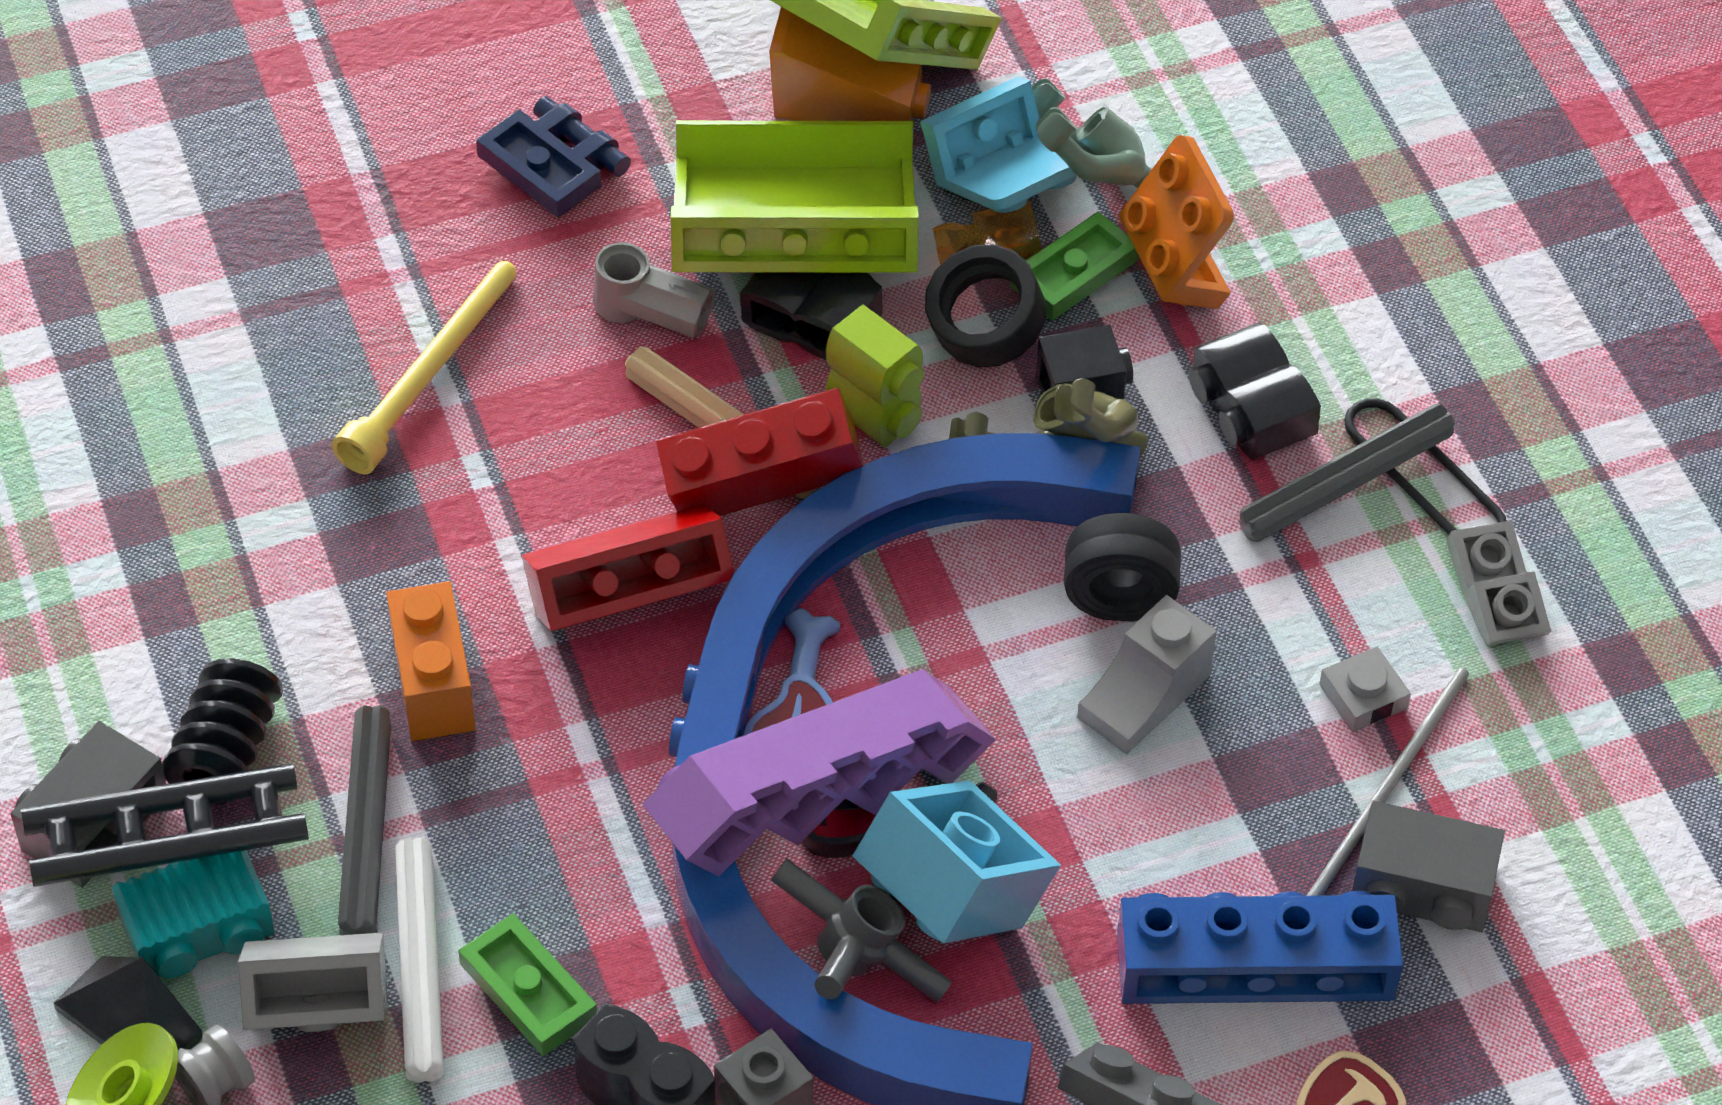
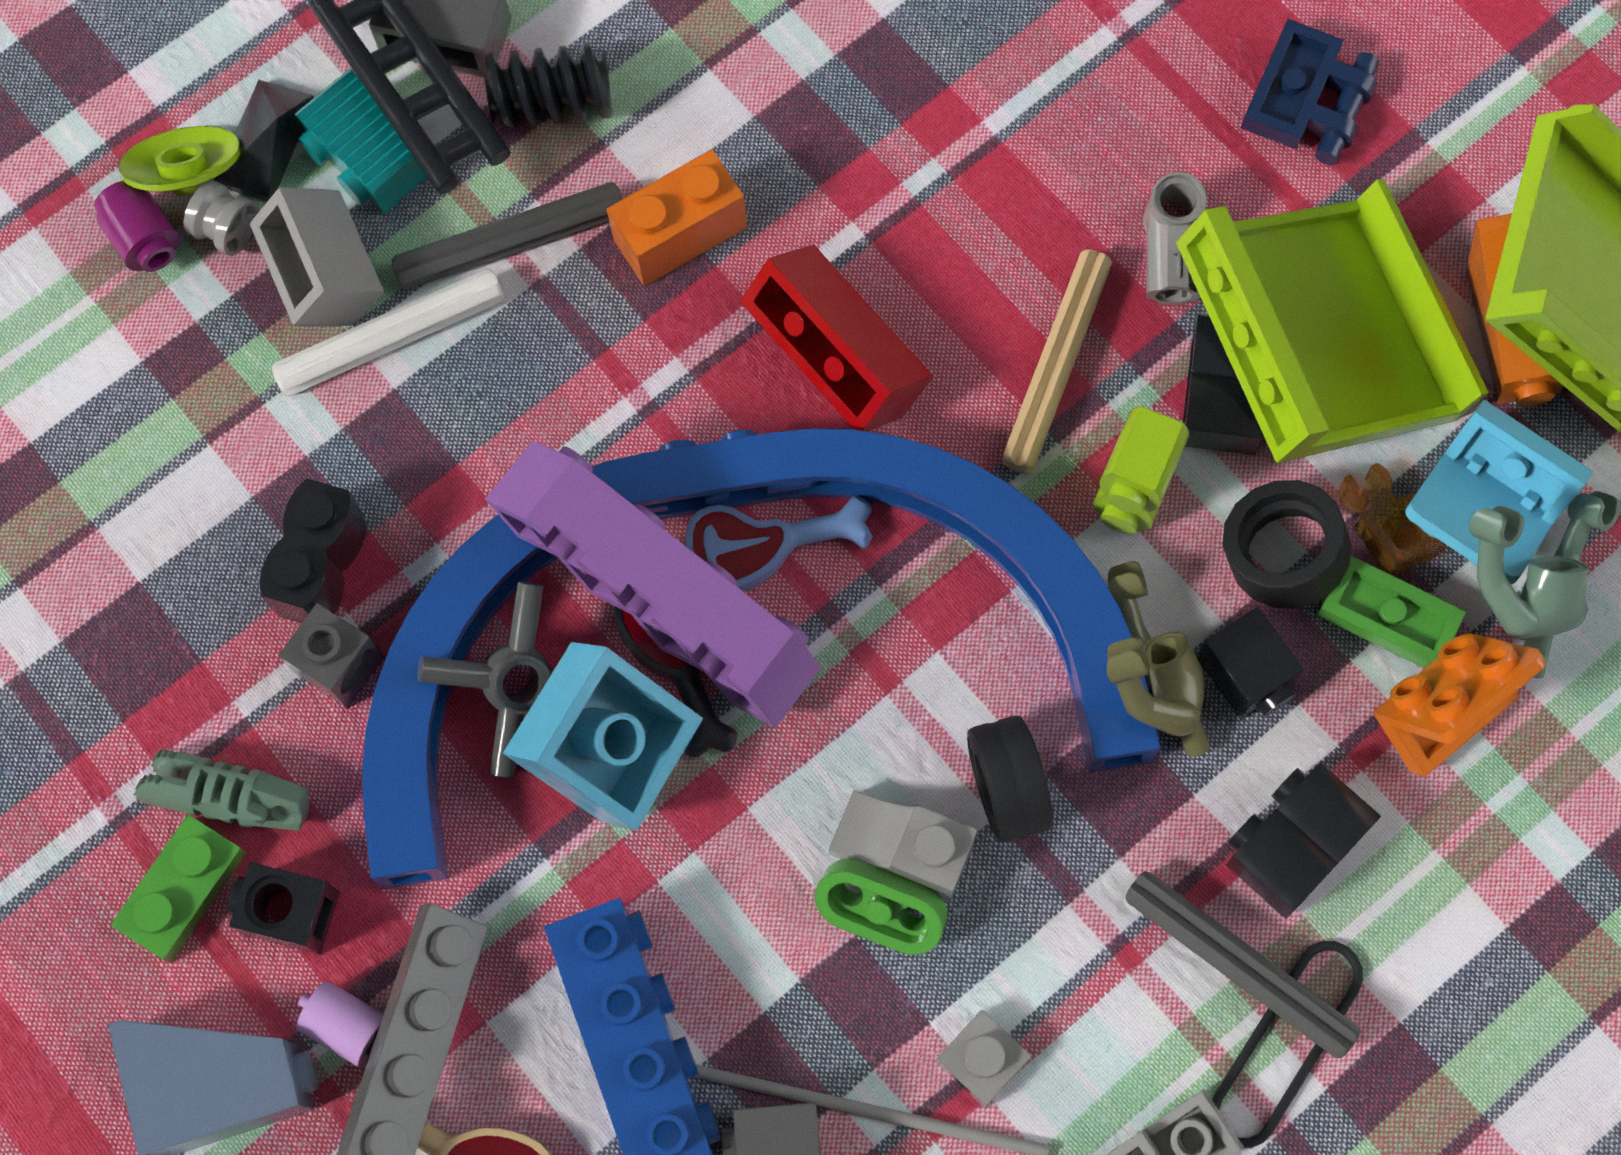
camera: 75 degrees right, 20 degrees up
(364, 441) = (905, 72): light yellow piece -> none
(527, 984) = (385, 426): bright green plate -> none
(761, 455) = (999, 404): red brick -> none
(1195, 717) = (881, 907): none -> bright green plate

